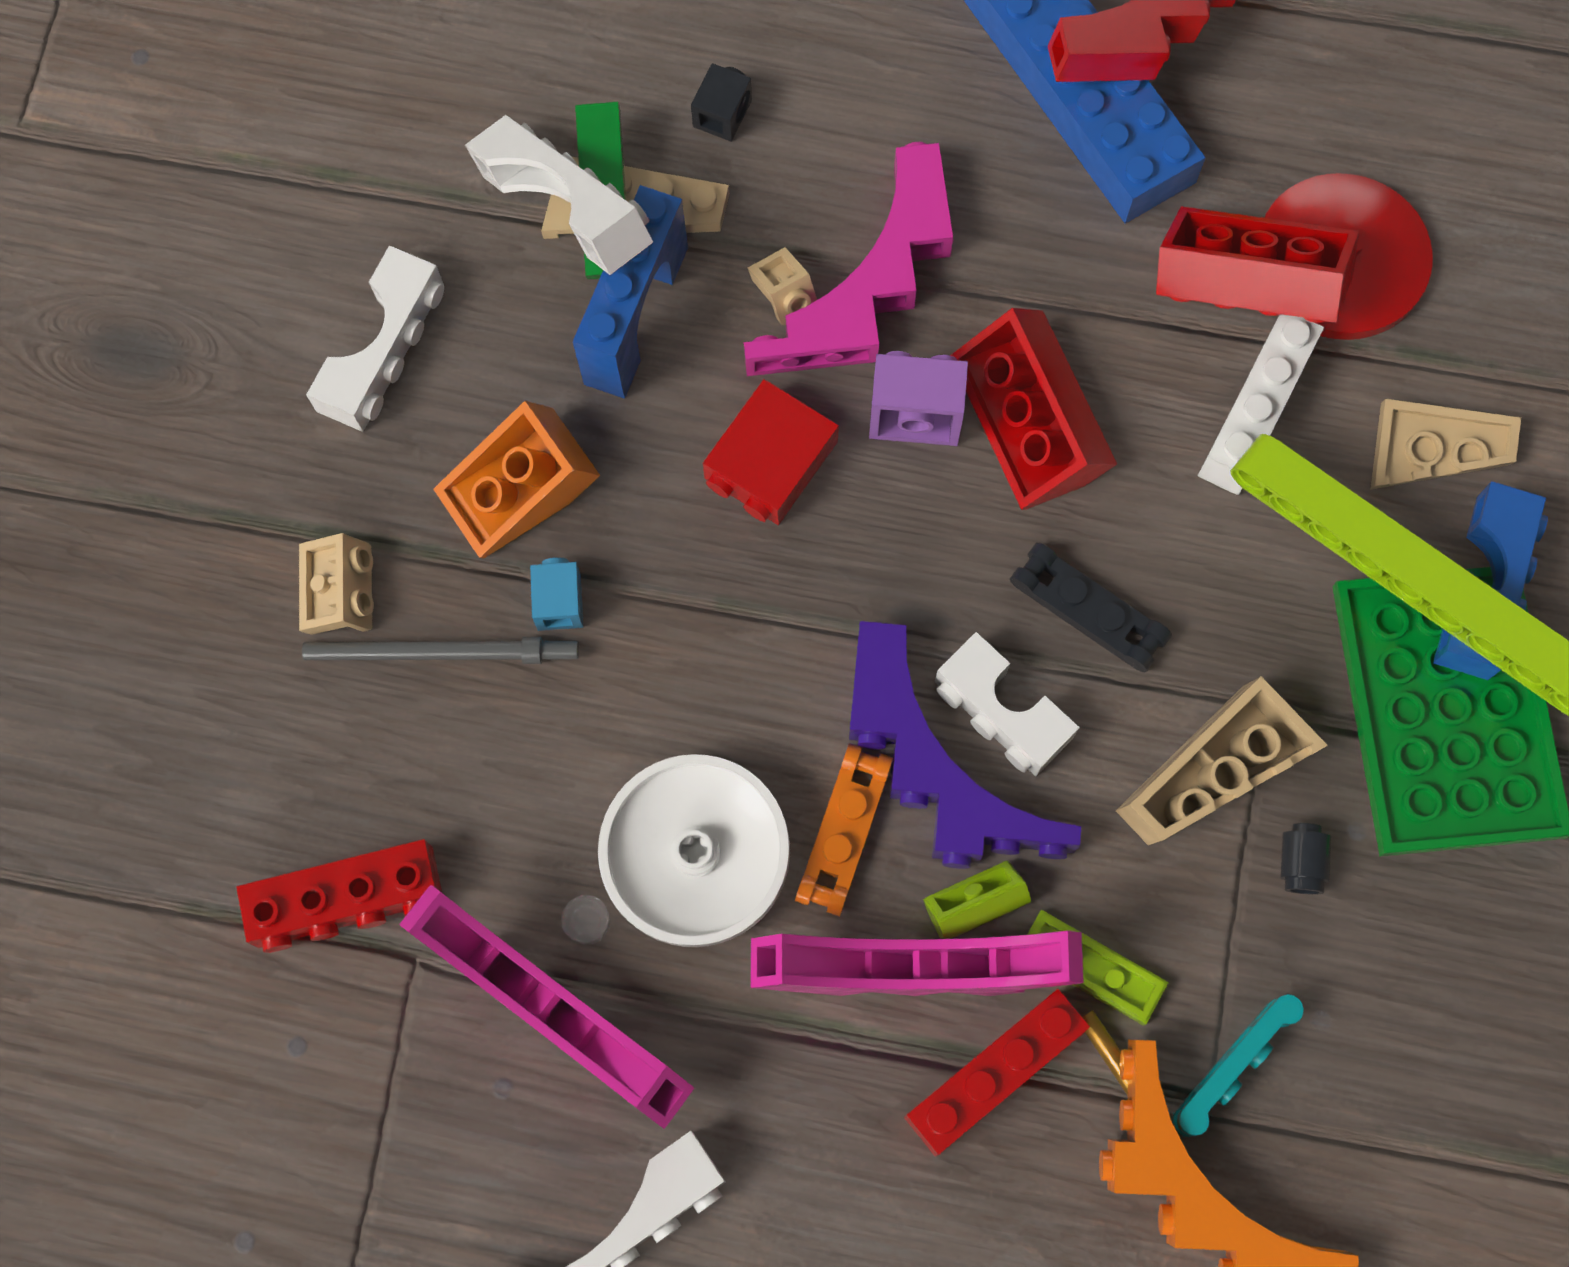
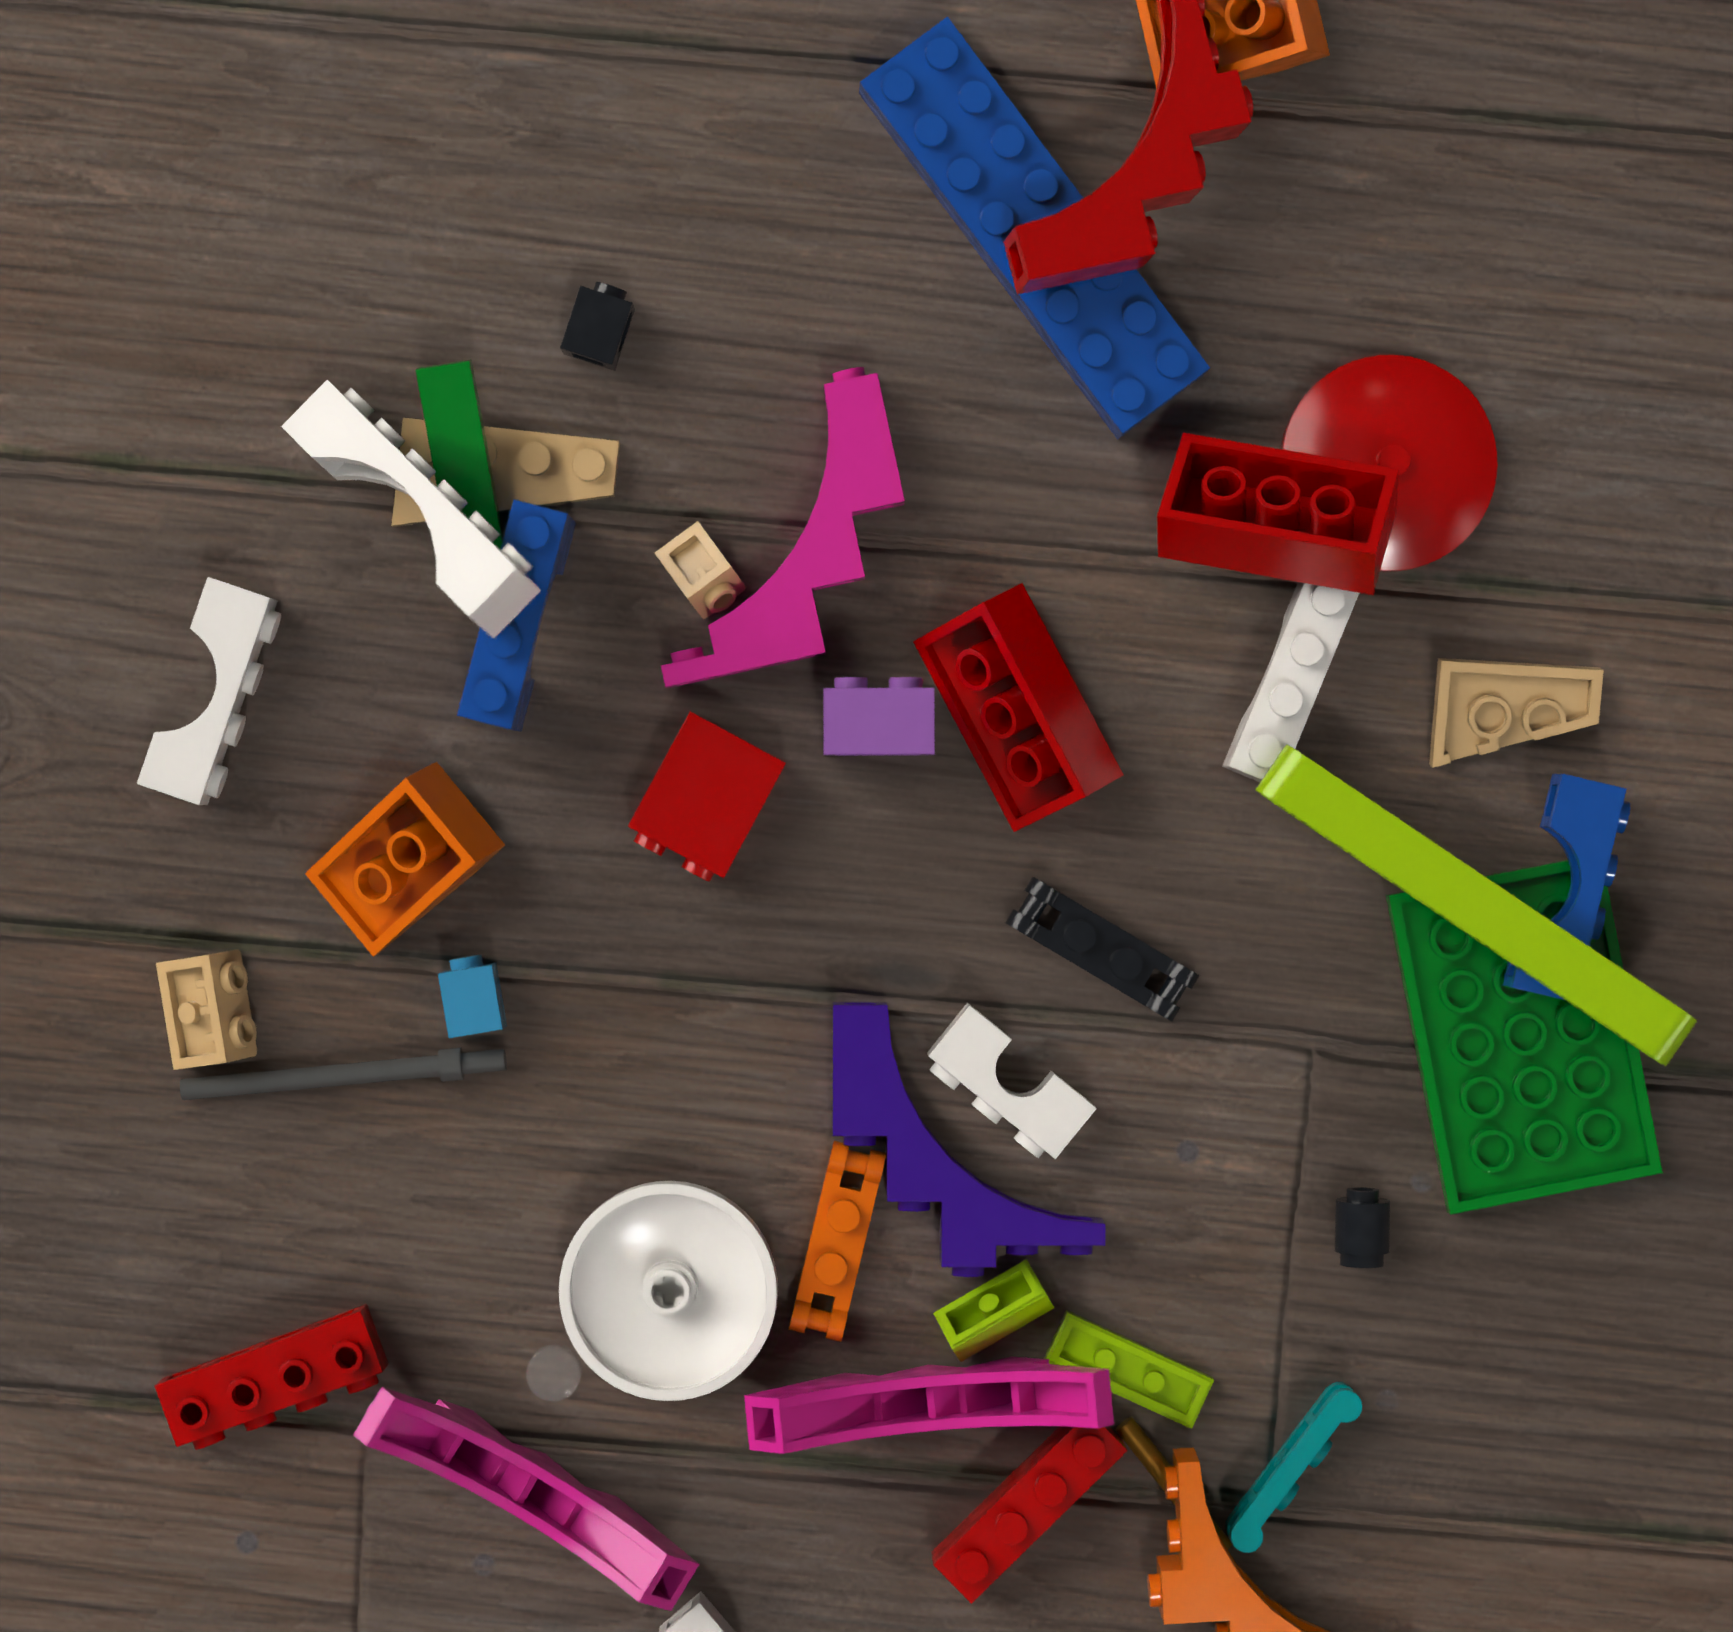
camera: 10 degrees left, 15 degrees up
(1226, 757) = (1259, 1132): tan wedge -> none

